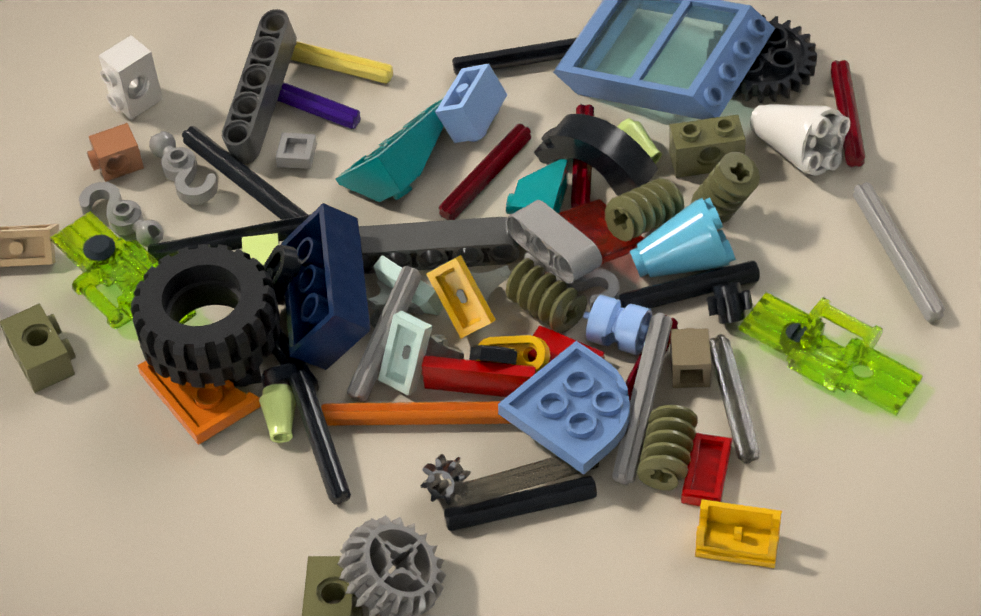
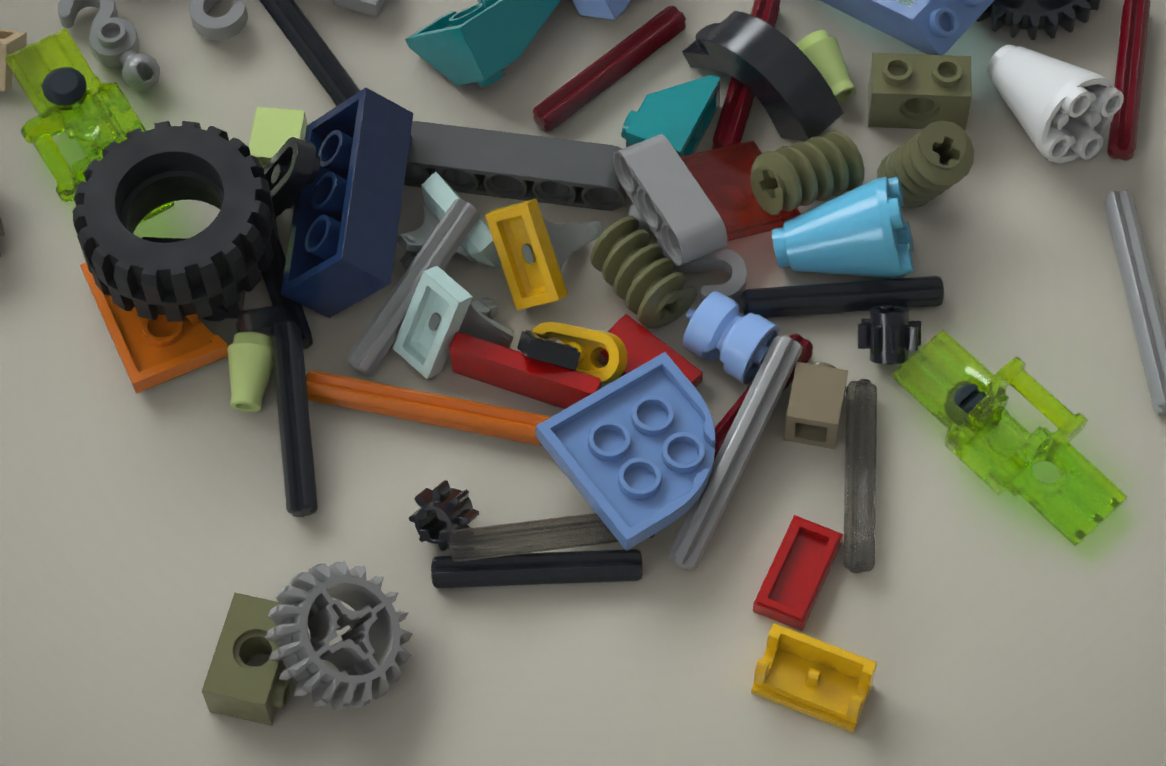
camera: 10 degrees right, 10 degrees up
(228, 237) = (232, 103): black axle -> none
(667, 447) = (750, 530): olive piece -> none

